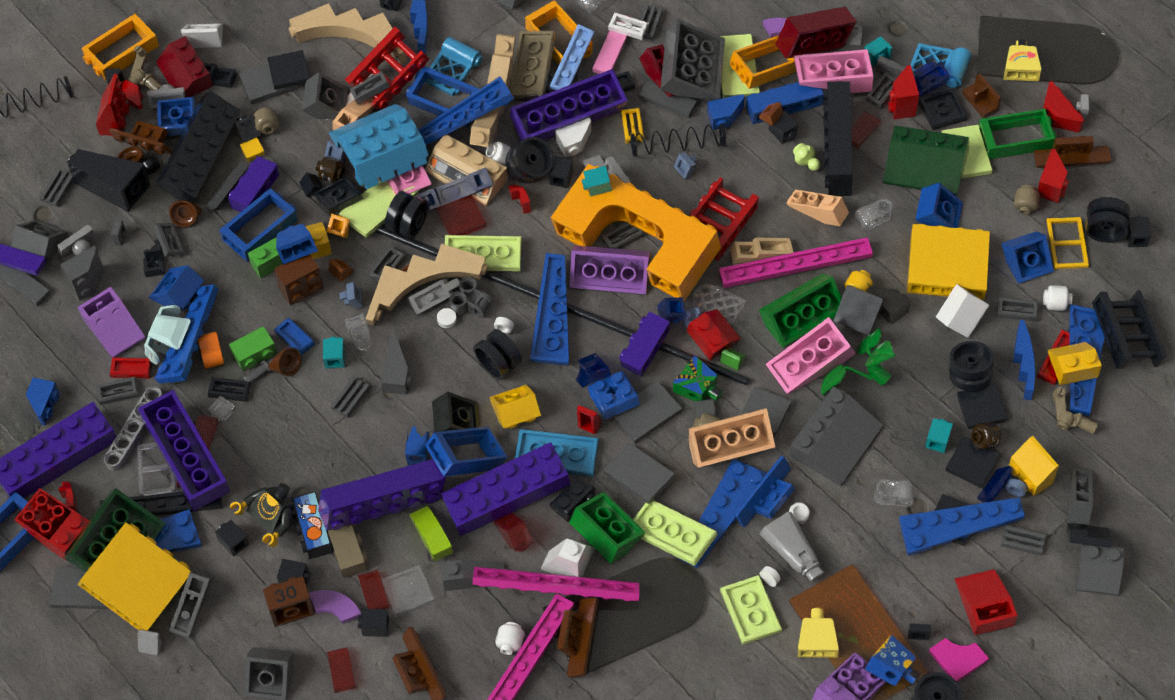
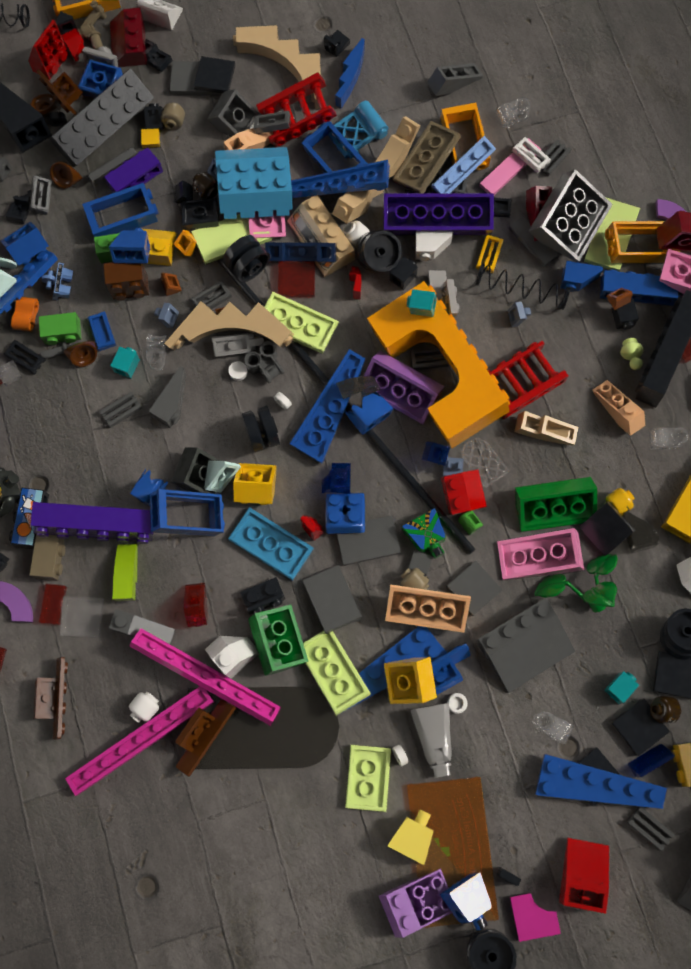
camera: 25 degrees right, 15 degrees up
(226, 308) = (61, 274): none -> medium blue hips
(374, 622) = (37, 636): black brick -> none
(478, 408) = (219, 475): none -> light aqua slope
(505, 489) = (206, 562): dark purple brick -> none
(573, 278) = (363, 384): none -> clear smoke slope
(594, 302) = (373, 411): none -> blue piece
(644, 343) = (396, 475): dark purple brick -> none
(747, 503) = (410, 680): none -> yellow slope
(795, 262) = (573, 454): dark pink plate -> none
(1016, 487) = (670, 774): sand blue tile -> none

